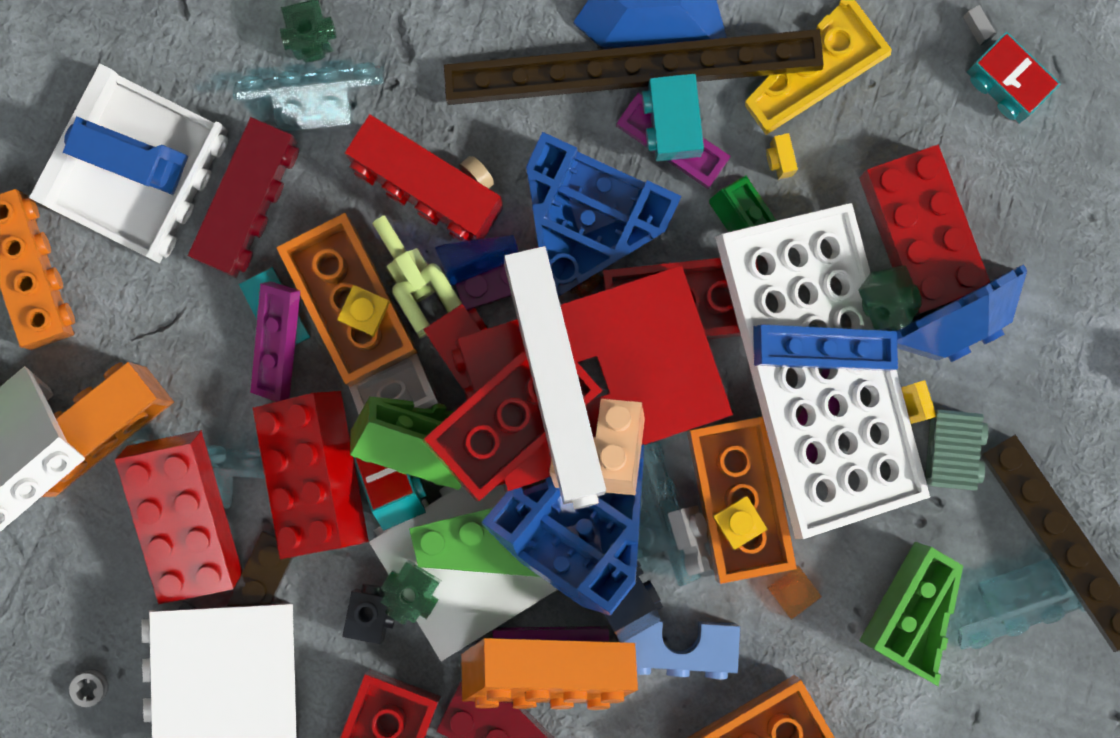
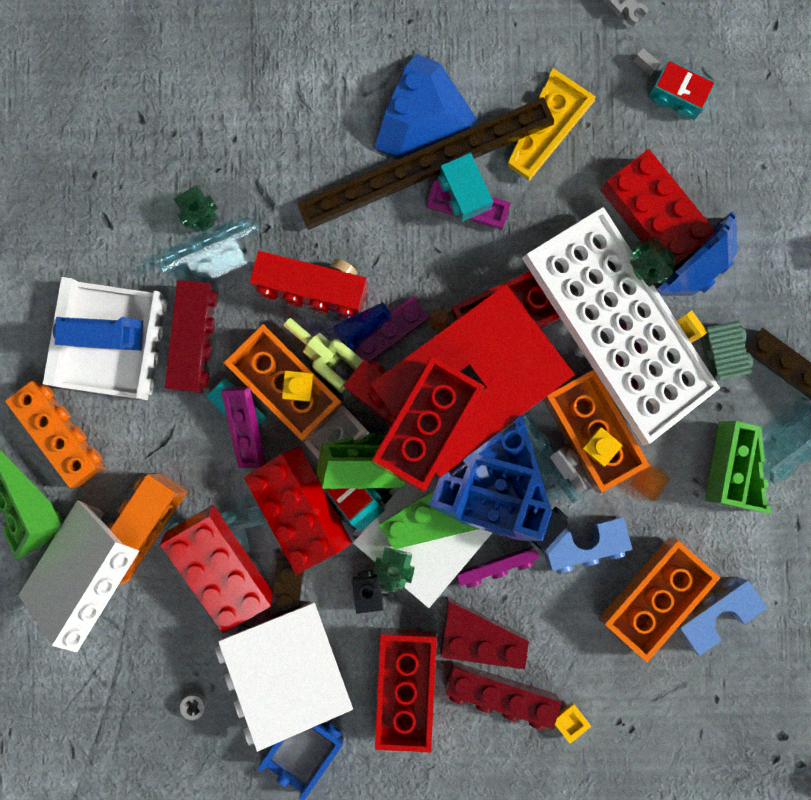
camera: 20 degrees left, 0 degrees up
(548, 673) = (506, 593): orange brick -> none
(555, 377) = (450, 387): white brick -> none
(590, 211) = (429, 271): blue wedge -> none
(617, 445) = (502, 434): light nougat brick -> none
(740, 206) = (527, 234): green slope -> none
(781, 156) = (545, 191): yellow plate -> none
(825, 348) = (620, 309): blue plate -> none

